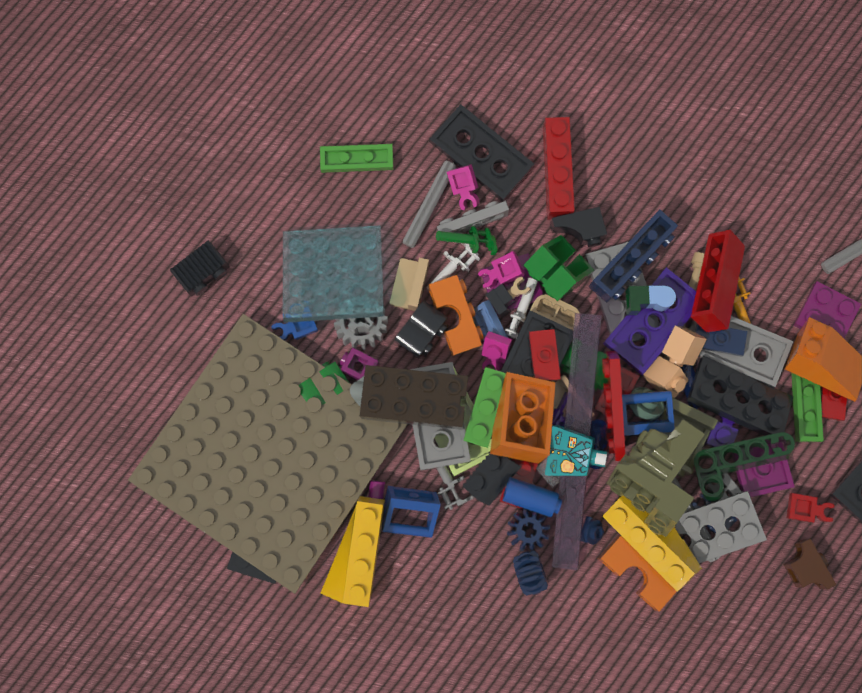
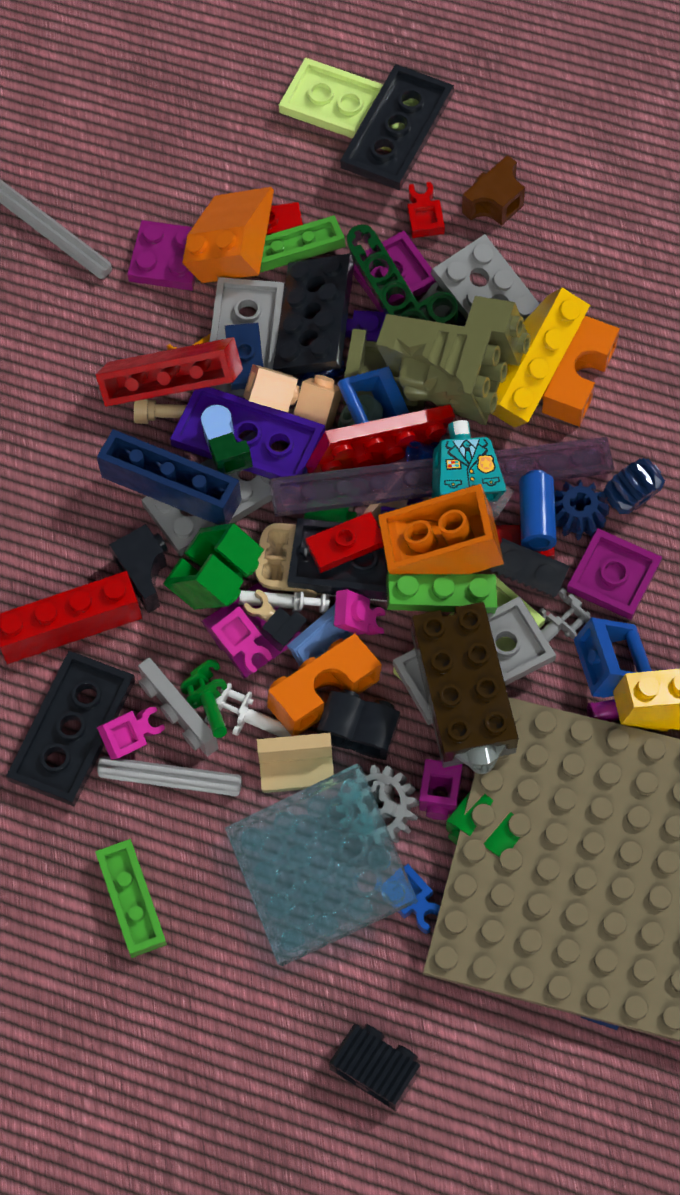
camera: 105 degrees left, 15 degrees down
(473, 536) = (614, 574): none -> magenta plate
(592, 531) = (548, 434): dark blue plate -> none

